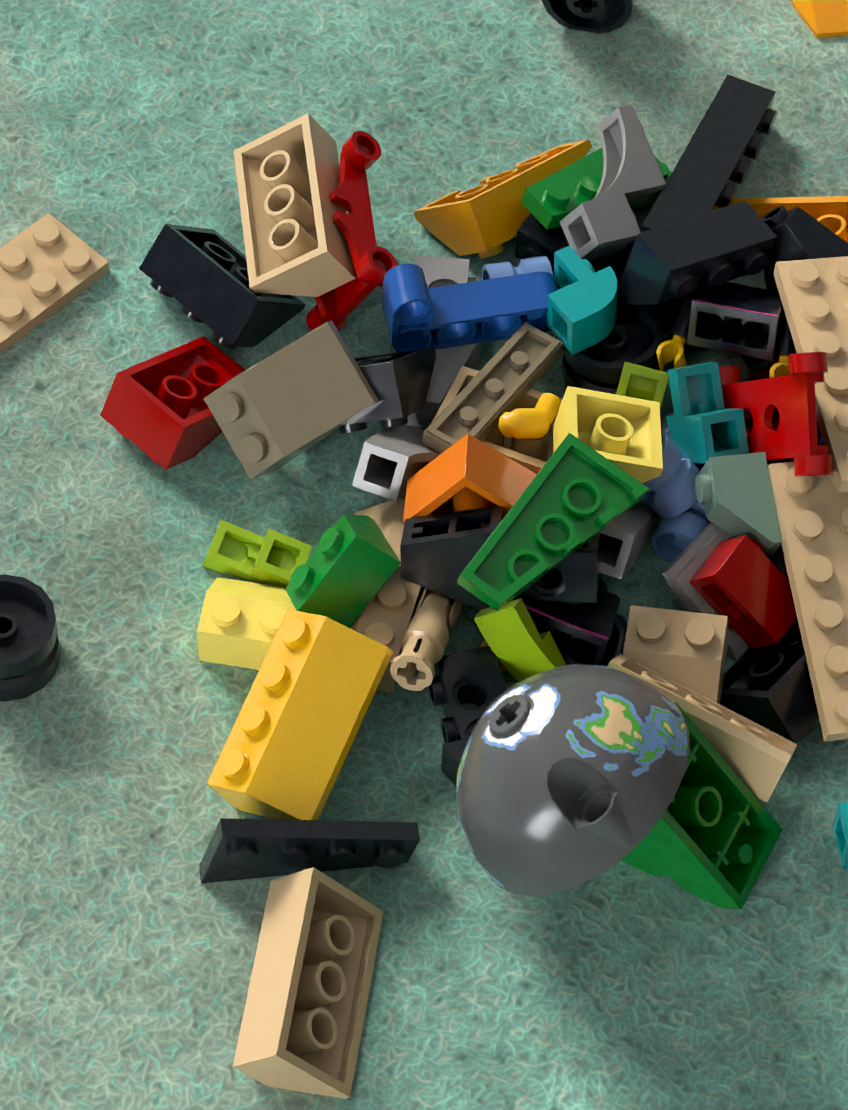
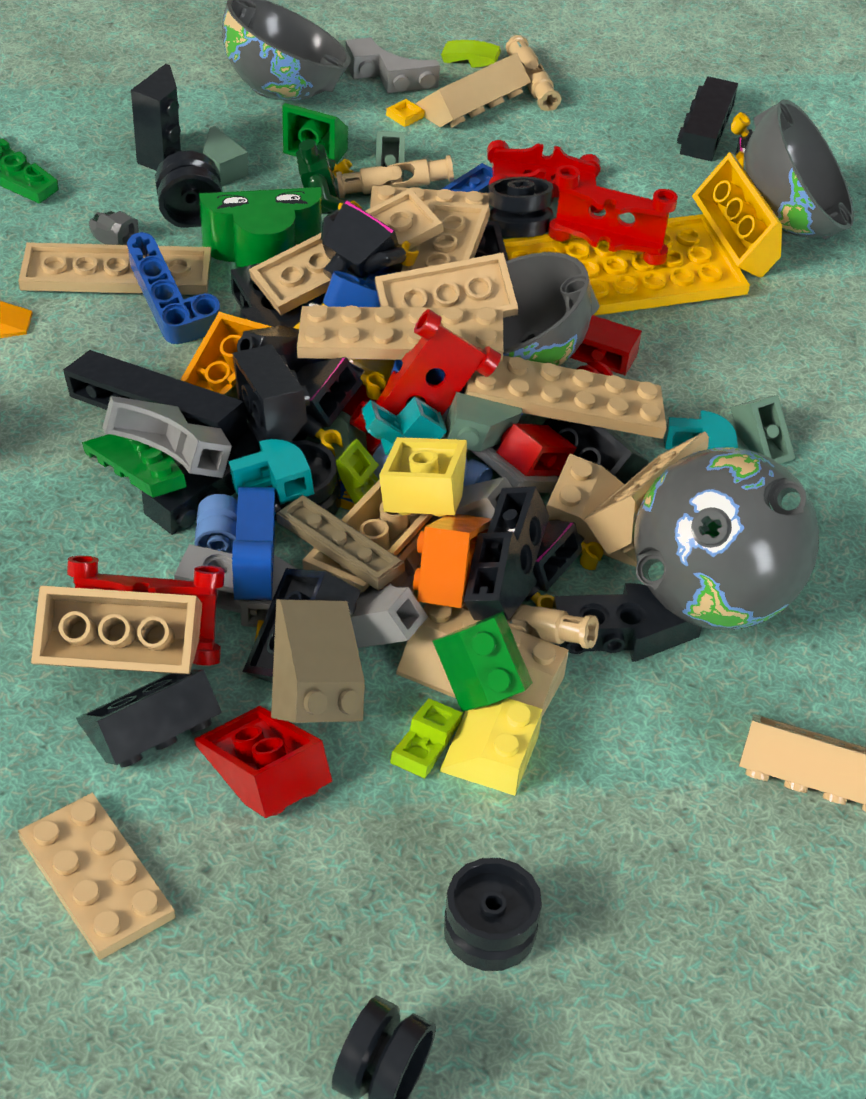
camera: 80 degrees left, 10 degrees down
(284, 847) = (715, 743): black wing -> none
(299, 718) = (612, 713): yellow slope -> none
(493, 212) = (126, 527): light orange wedge -> none
(517, 641) = (557, 574): lime slope -> none
(530, 422) = (377, 519): yellow arm -> none
(554, 516) = (500, 492): green wing -> none

